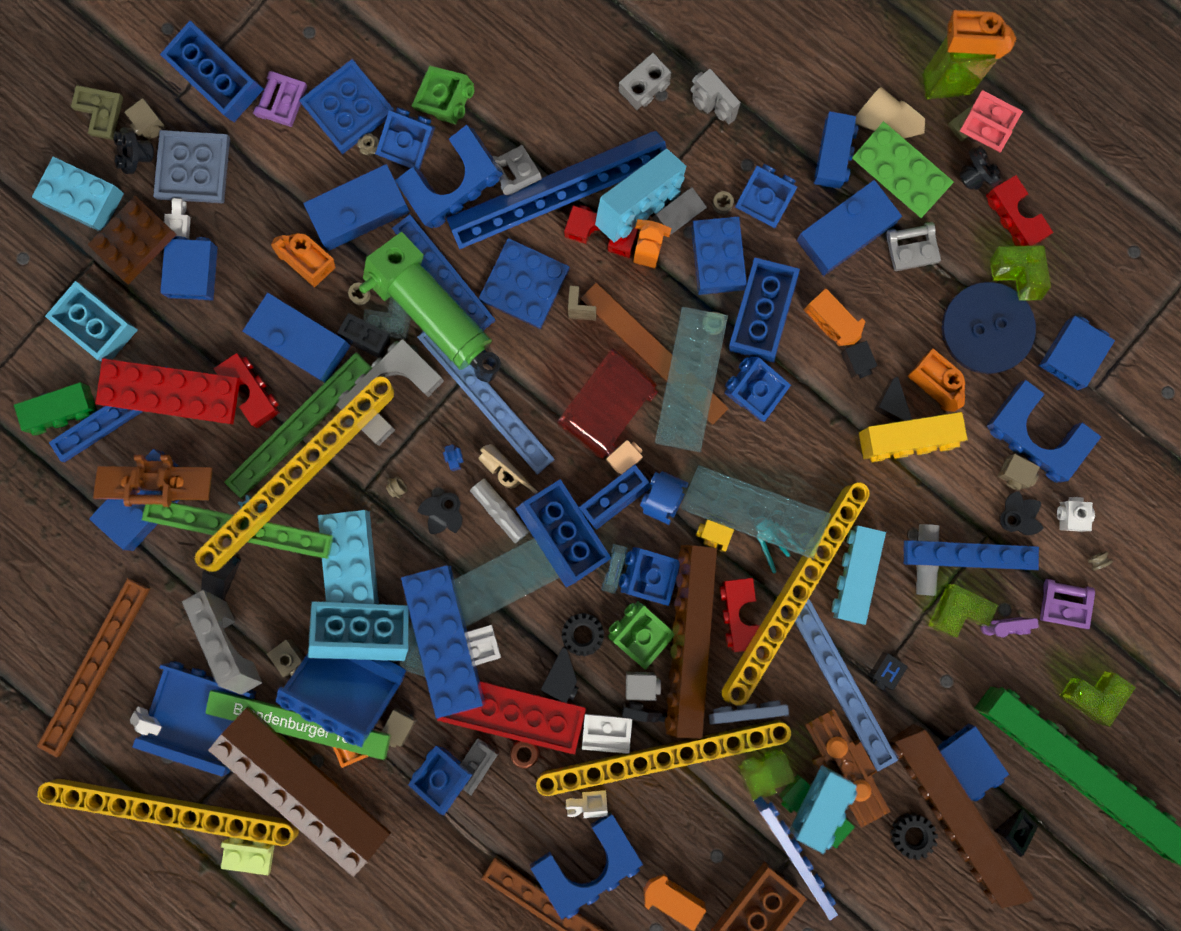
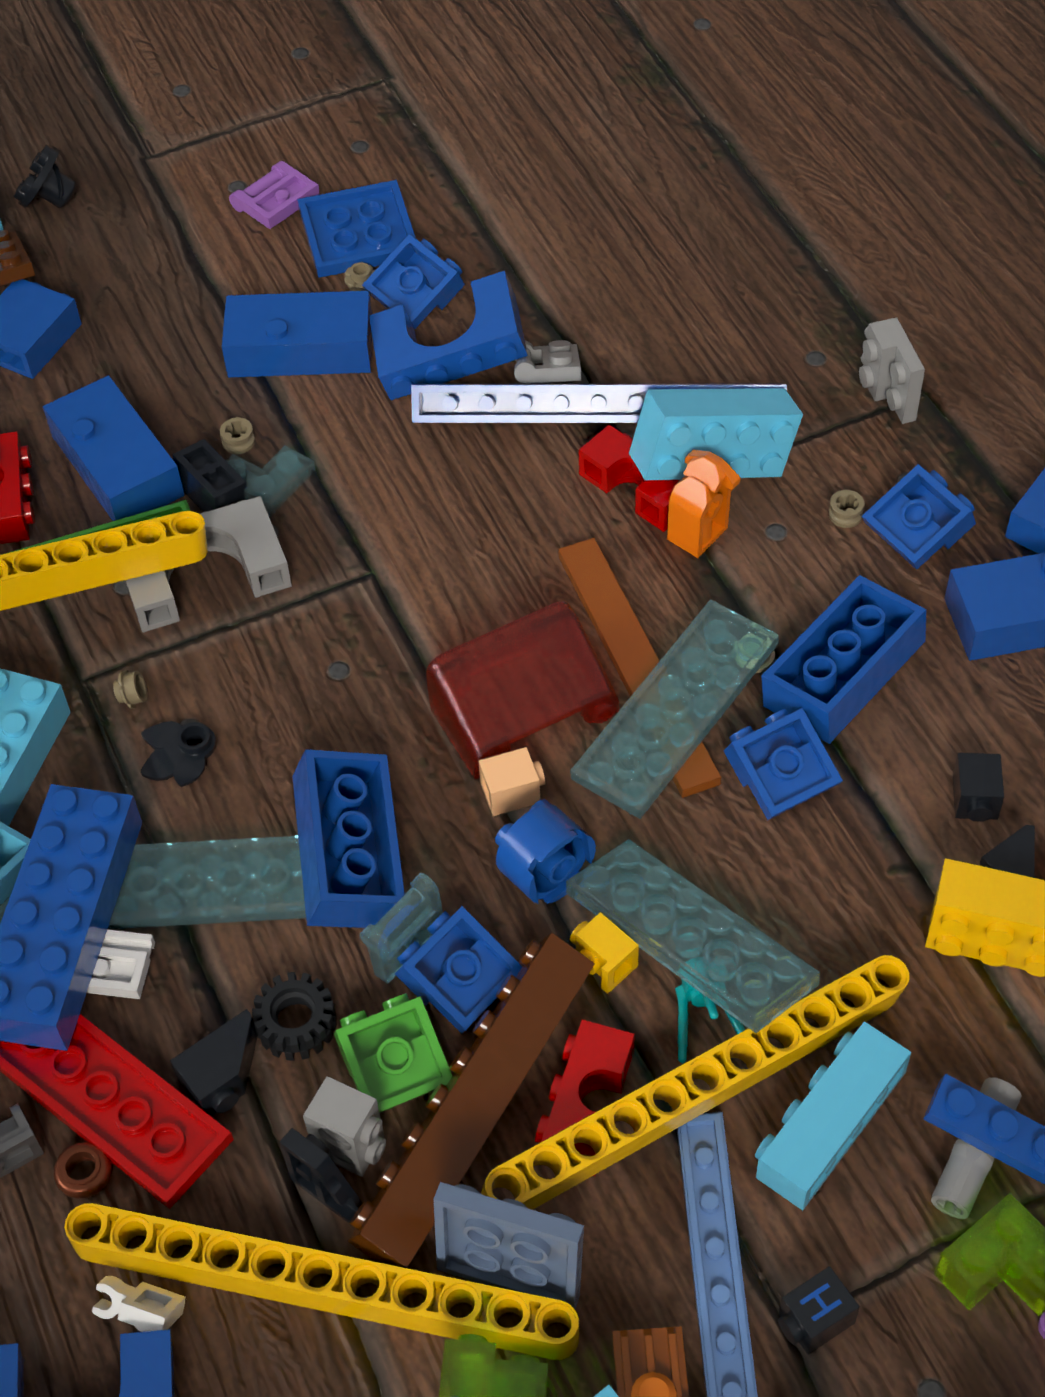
camera: 25 degrees right, 30 degrees down
(104, 108) = (36, 129): olive plate -> none
(144, 120) = (85, 159): dark tan brick -> none
(177, 220) = (53, 271): white plate -> none
(191, 166) = (109, 225): sand blue plate -> none
(211, 71) = (205, 136): blue brick -> none
(310, 263) = (188, 363): orange piece -> none
(398, 273) = (304, 415): bright green piece -> none
(444, 94) = (498, 249): bright green plate -> none
(444, 273) = (372, 454): blue plate -> none
(453, 457) = (241, 676): blue plate -> none
(495, 410) = (341, 632): medium blue tile -> none
(496, 461) = (304, 711): tan panel -> none
(499, 511) = (268, 779): light grey axle -> none
(524, 283) = (484, 506): blue plate -> none
(578, 311) = (549, 549): dark tan panel -> none
(607, 733) = (243, 1194): white plate -> none
(615, 497) = (457, 822): blue brick -> none
(640, 79) = (796, 328): light grey brick -> none
(680, 210) = (771, 489): flat silver hinge -> none
(718, 255) = (803, 563): blue brick -> none
(835, 319) = (957, 706): orange piece -> none

